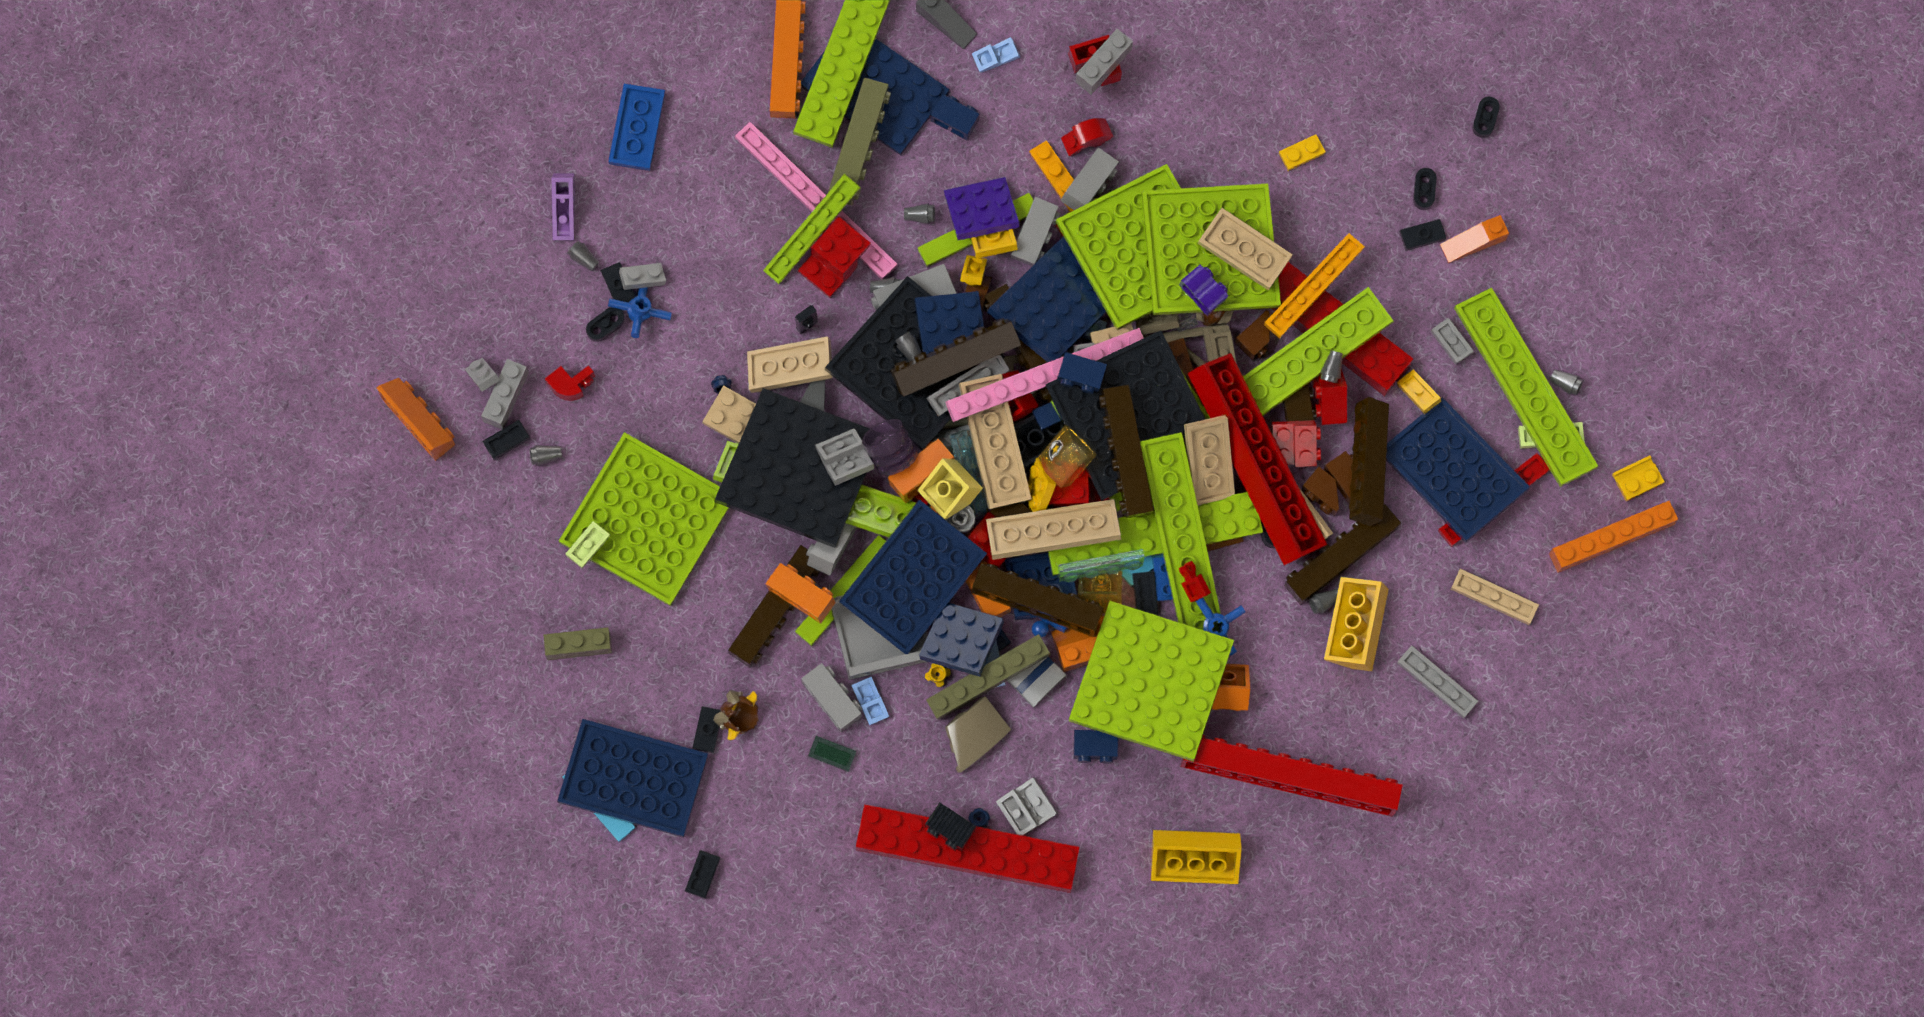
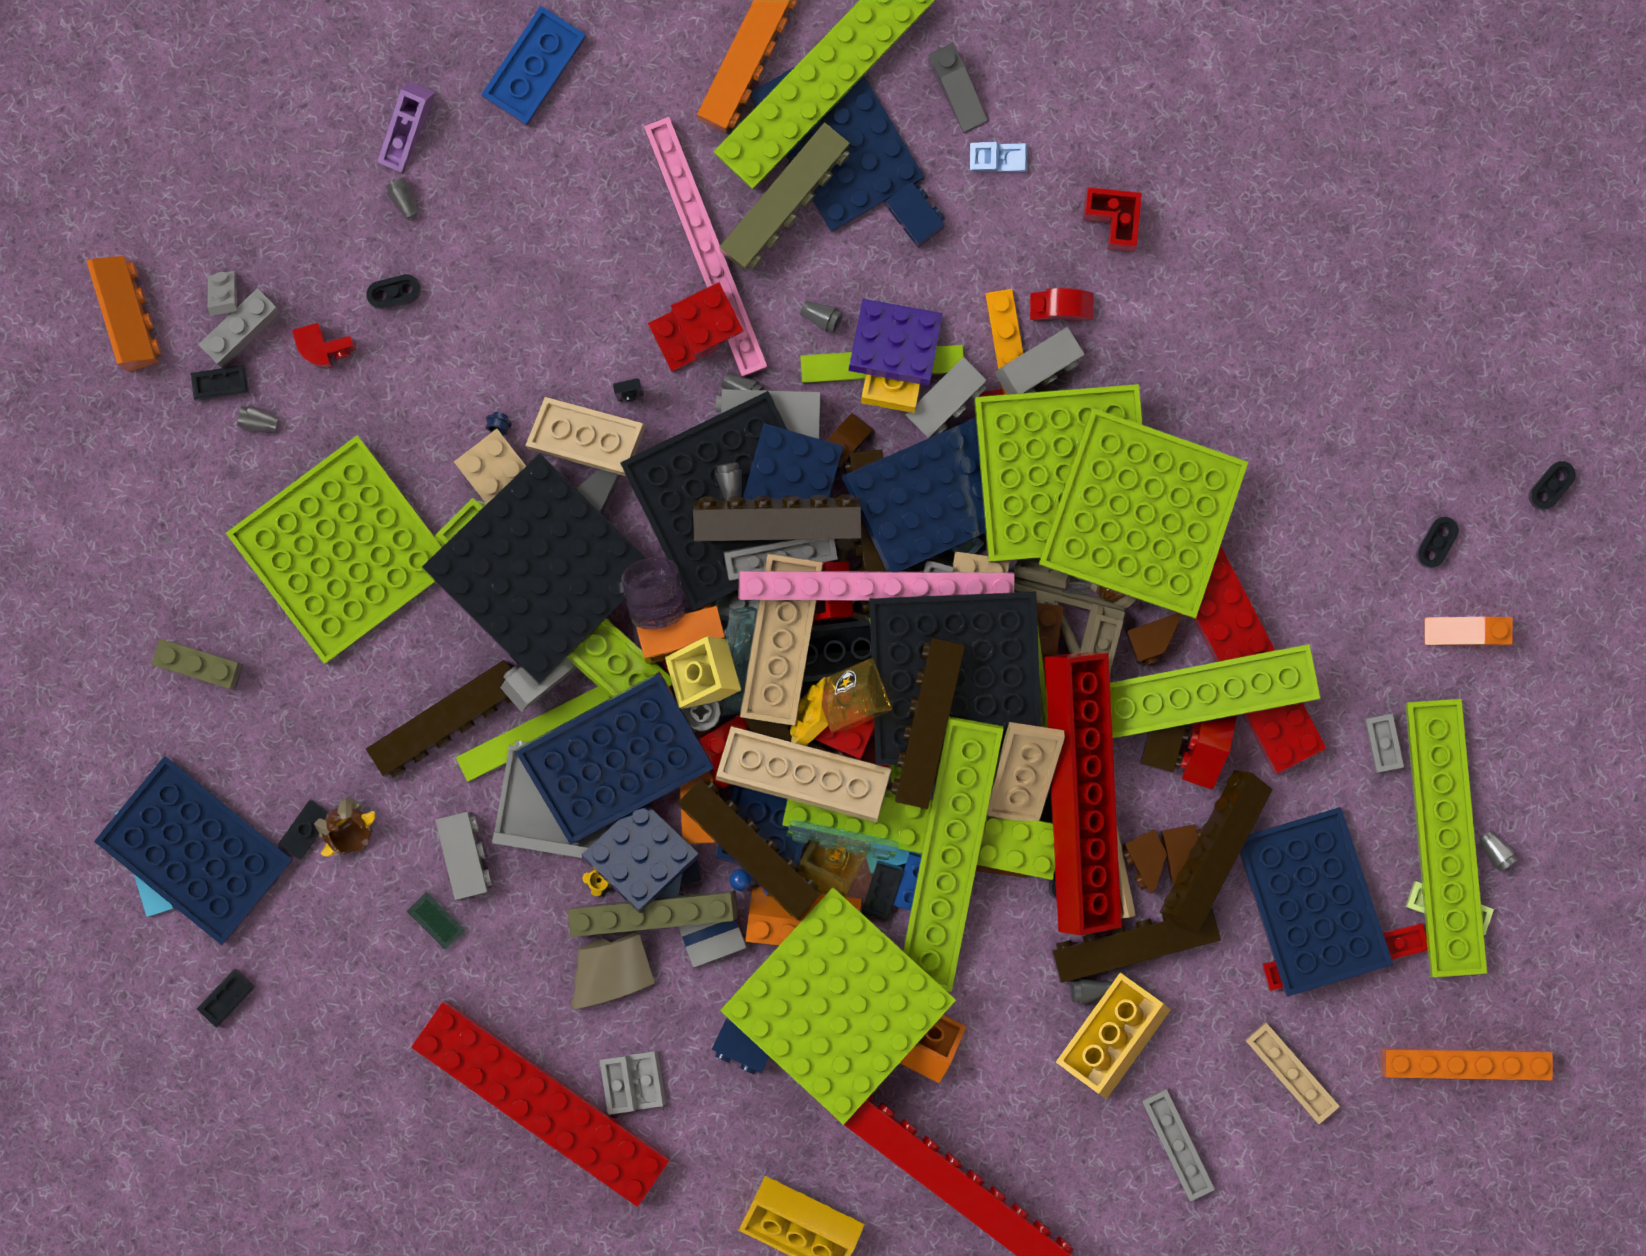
camera: 30 degrees right, 10 degrees up
(587, 544) = (255, 554): yellowish green plate -> none
(614, 283) = (430, 250): black plate -> none
(639, 310) = (436, 300): blue bar -> none
(642, 276) = (461, 252): light grey plate -> none
(801, 592) = (476, 720): orange brick -> none
(811, 228) = (683, 281): lime tile -> none
(844, 457) = (596, 581): light grey slope -> none
(870, 700) = (506, 877): light blue slope -> none
(950, 827) = (525, 1076): black brick -> none
(973, 270) = (851, 414): yellow plate -> none
(979, 812) = (572, 1079): dark blue plate -> none
(1046, 416) = (857, 632): dark blue tile -> none
(1081, 372) = (916, 605): dark blue piece -> none
(1104, 61) = (1119, 226): light grey brick -> none
(1193, 585) = (939, 912): red plate -> none
(1204, 289) = (1111, 563): dark purple brick -> none
(1219, 618) = (954, 966): blue bar -> none
(1245, 249) = (1182, 533): tan plate -> none
(1298, 442) = (1142, 788): red plate -> none
(1302, 152) = (1310, 434): yellow plate -> none
(1314, 285) = (1247, 611): light orange plate -> none
(1332, 367) = (1221, 723): flat silver cone -> none
(1419, 391) = (1316, 788): yellow plate -> none
(1422, 234) = (1409, 597): black plate -> none
(1638, 478) = (1529, 1004): yellow plate -> none

